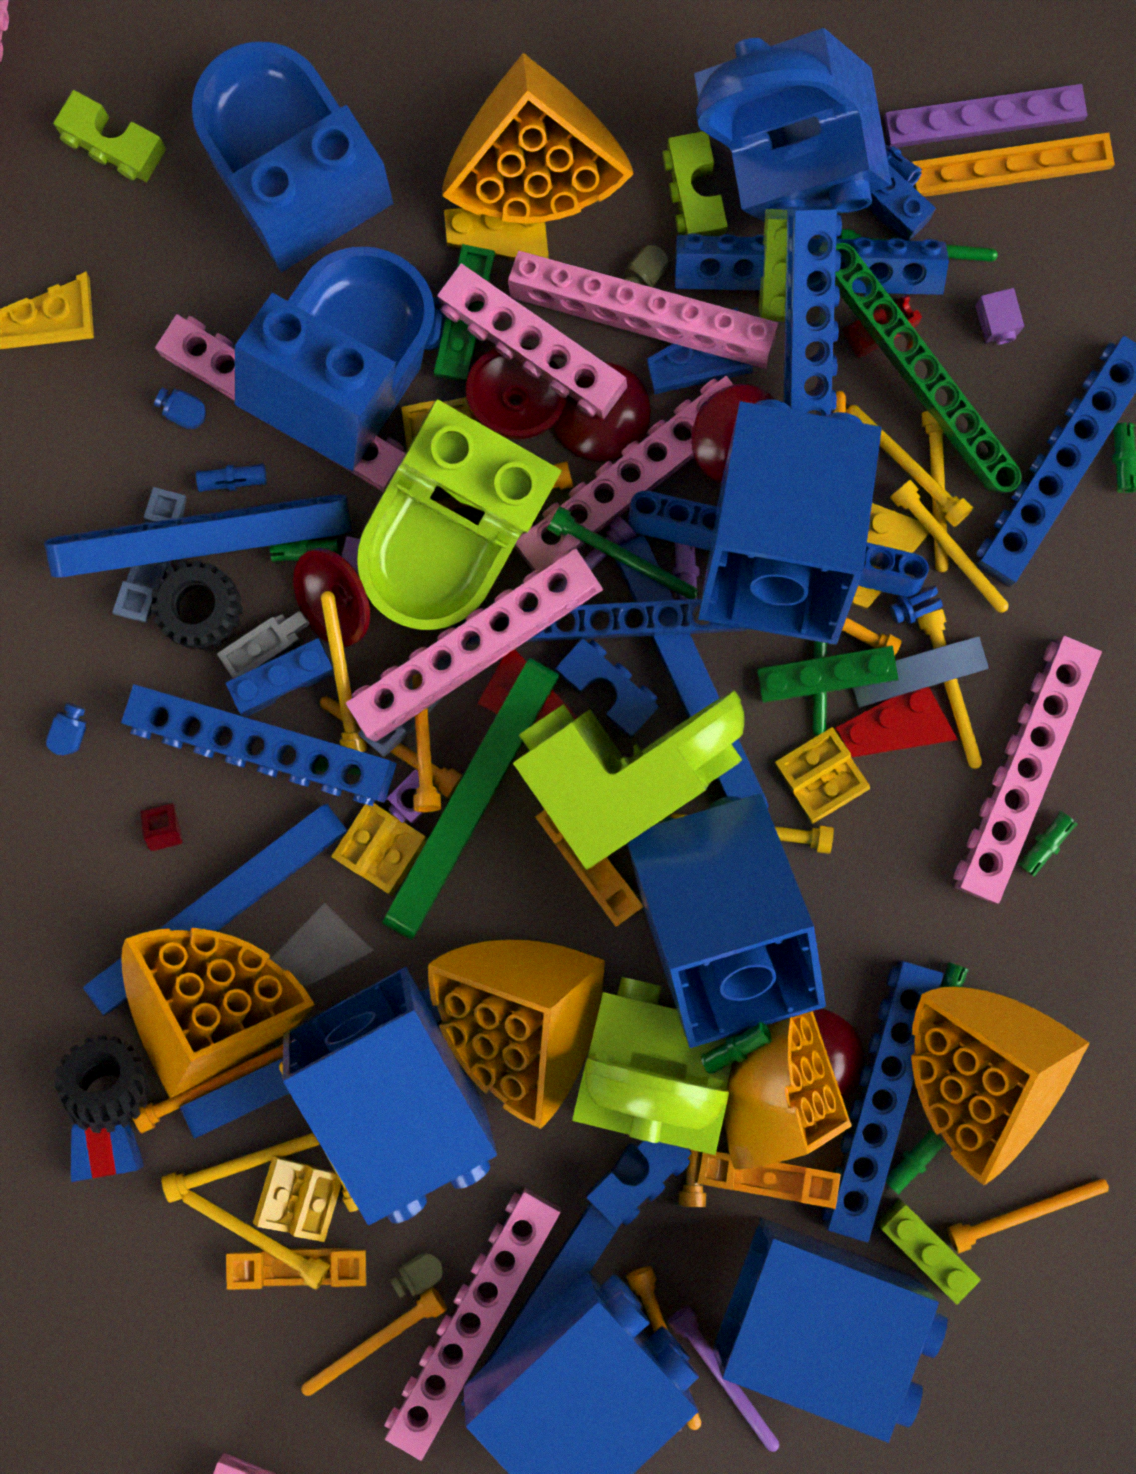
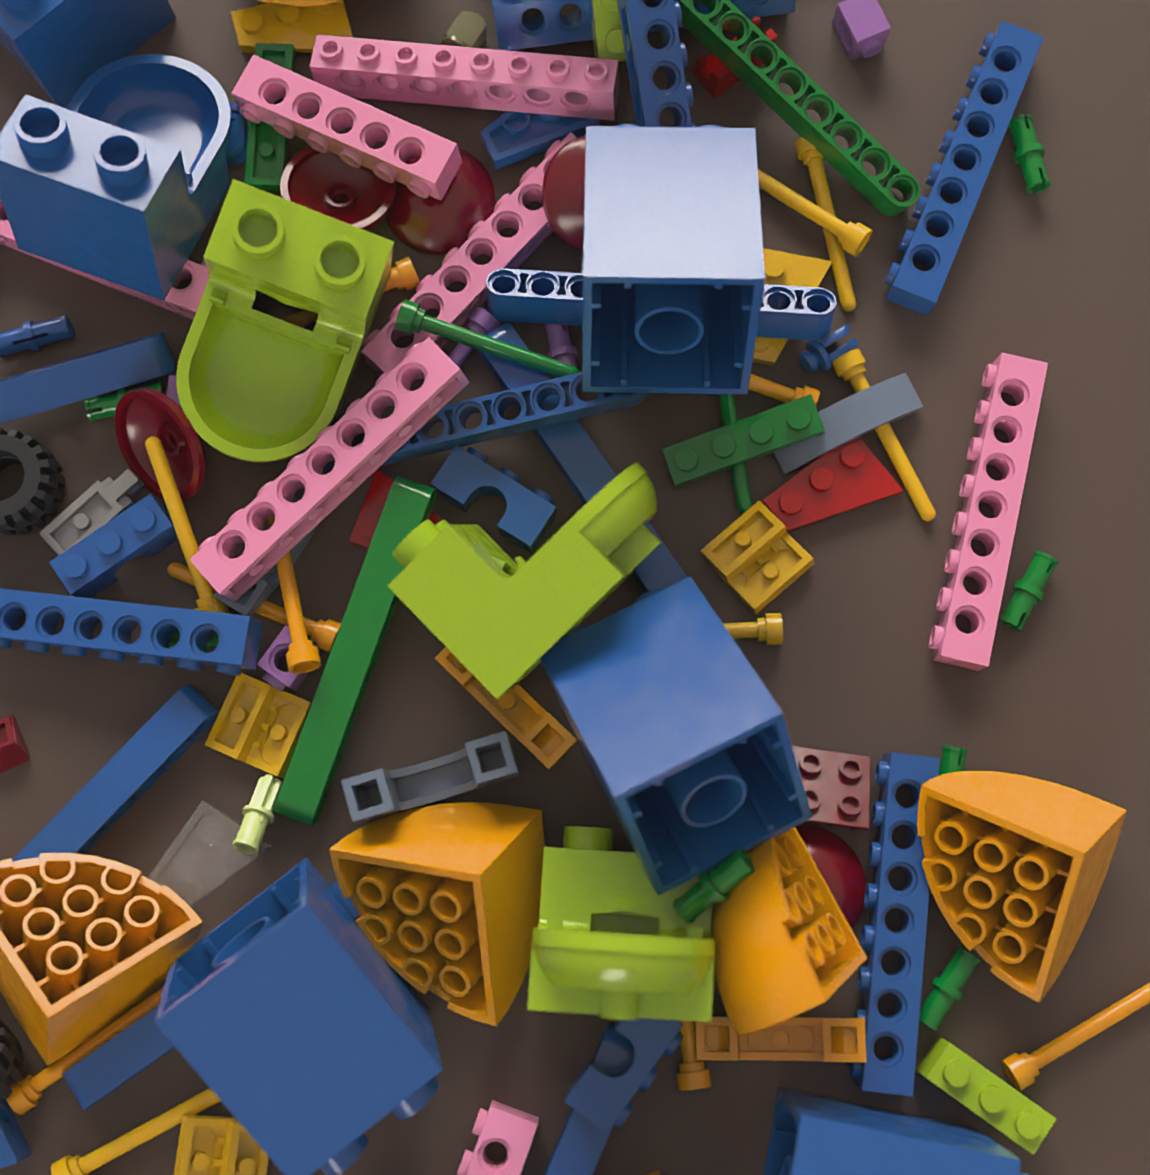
camera: 10 degrees left, 5 degrees down
(368, 923) = (257, 815): none -> yellowish green axle
(519, 919) = (398, 790): none -> sand blue arch
(851, 980) = (836, 787): none -> hinge
(909, 499) = (798, 234): yellow piece -> none

